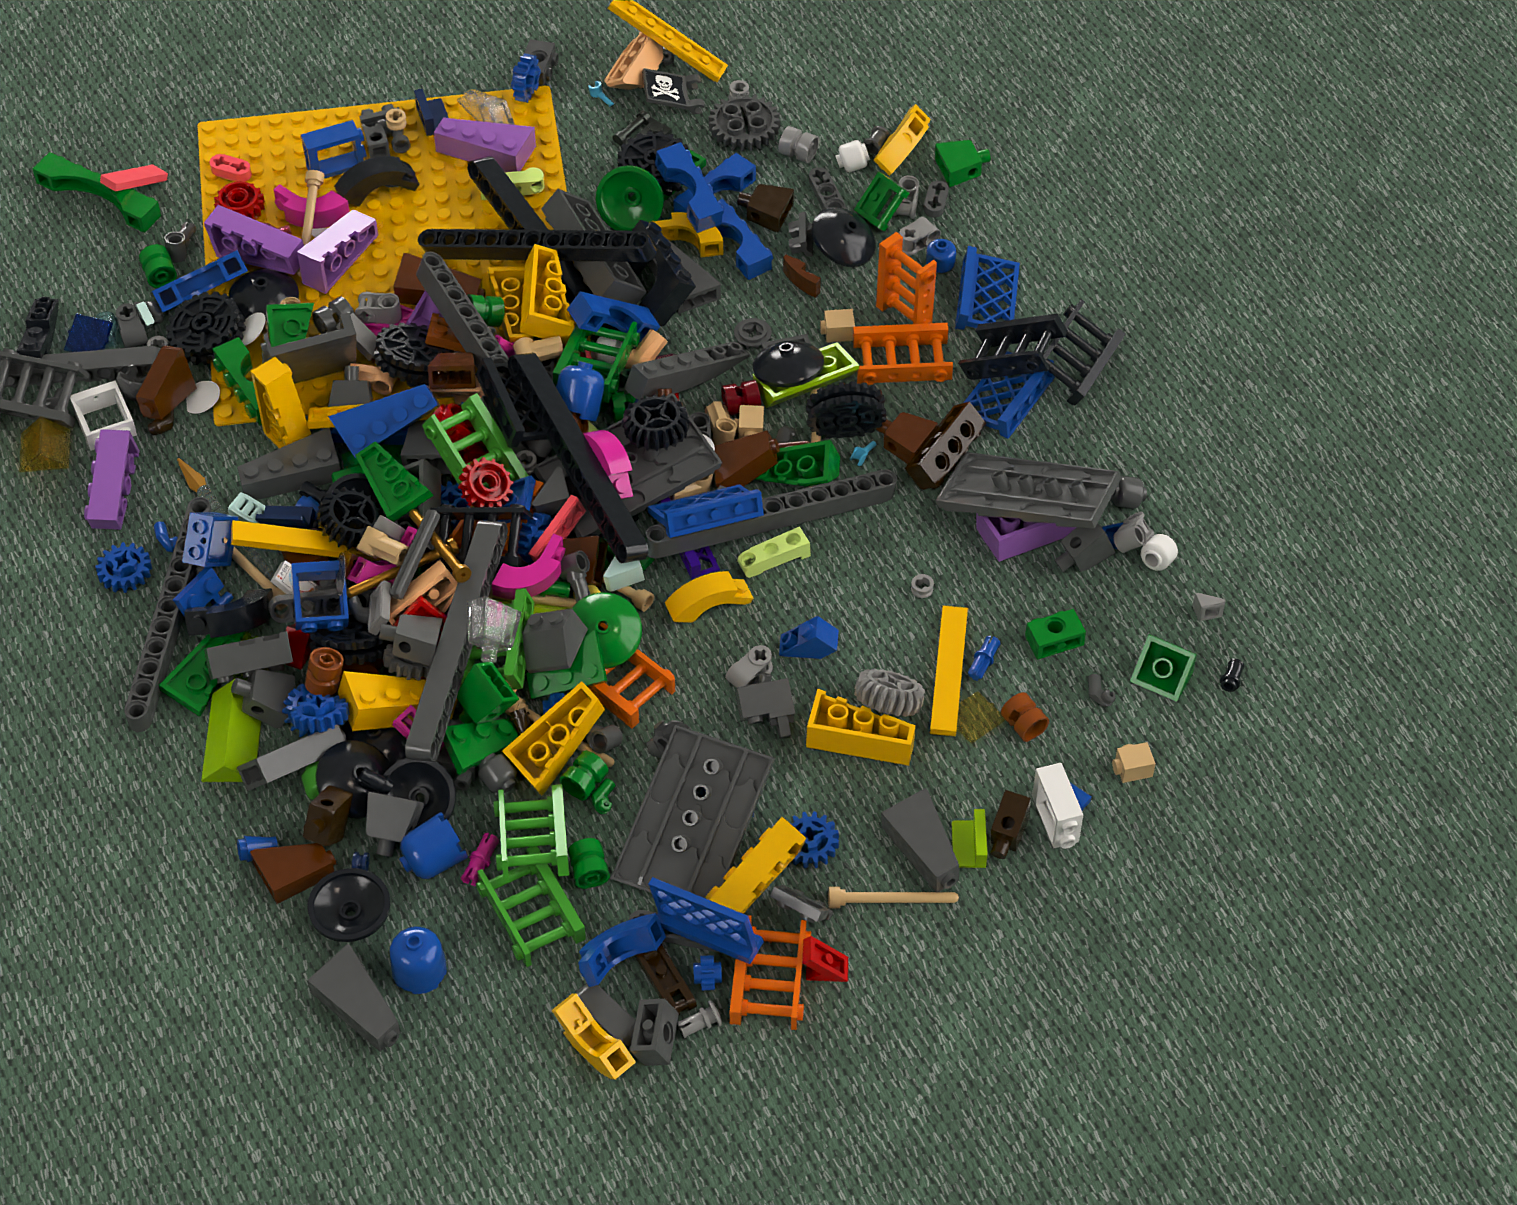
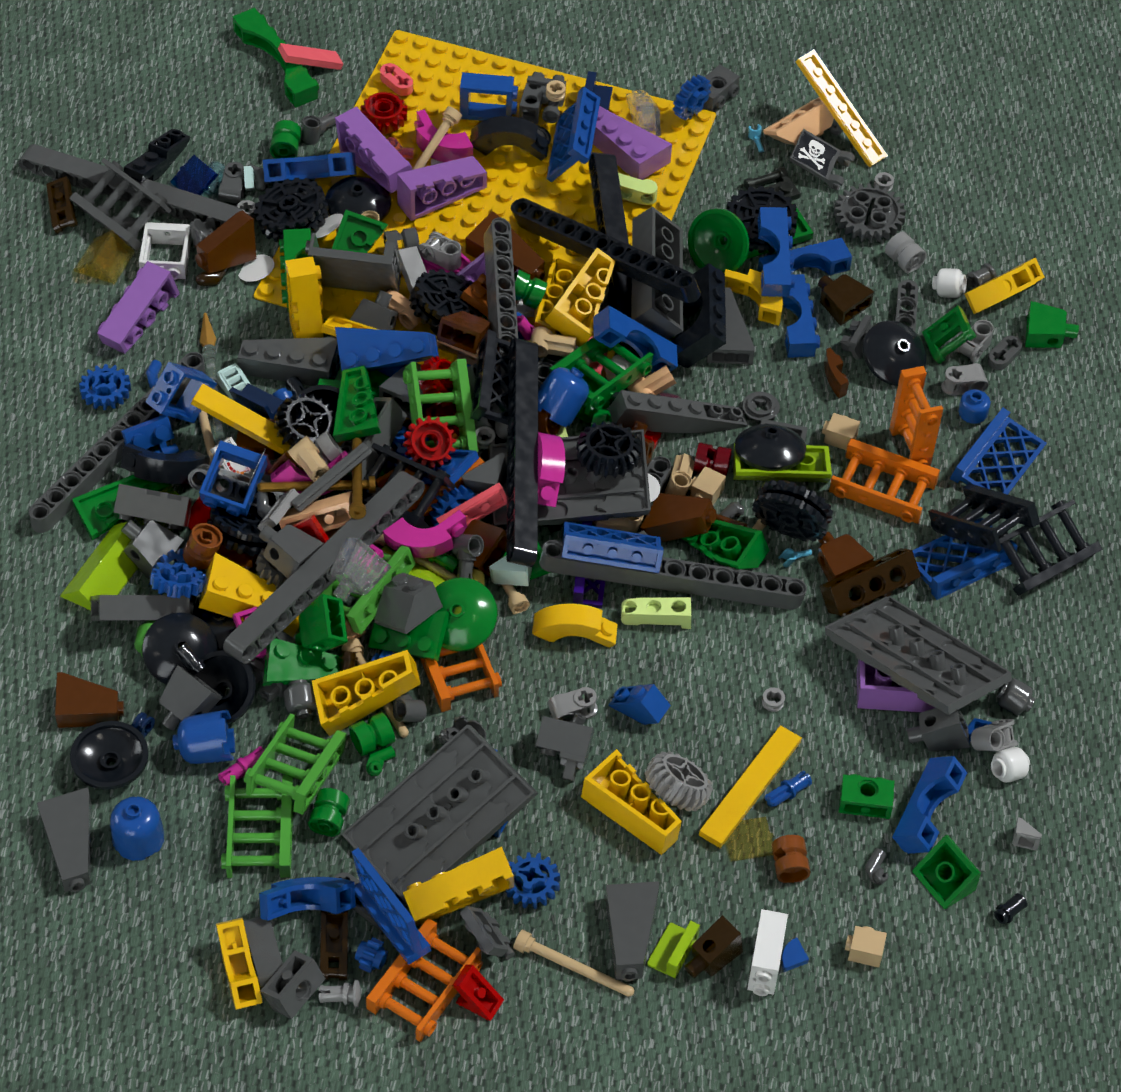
camera: 25 degrees right, 0 degrees up
(250, 843) = (68, 667): blue cone -> none
(328, 822) = (134, 672): dark brown torso -> none
(446, 146) = (574, 134): none -> blue fence
(1109, 592) = (939, 780): none -> blue arch

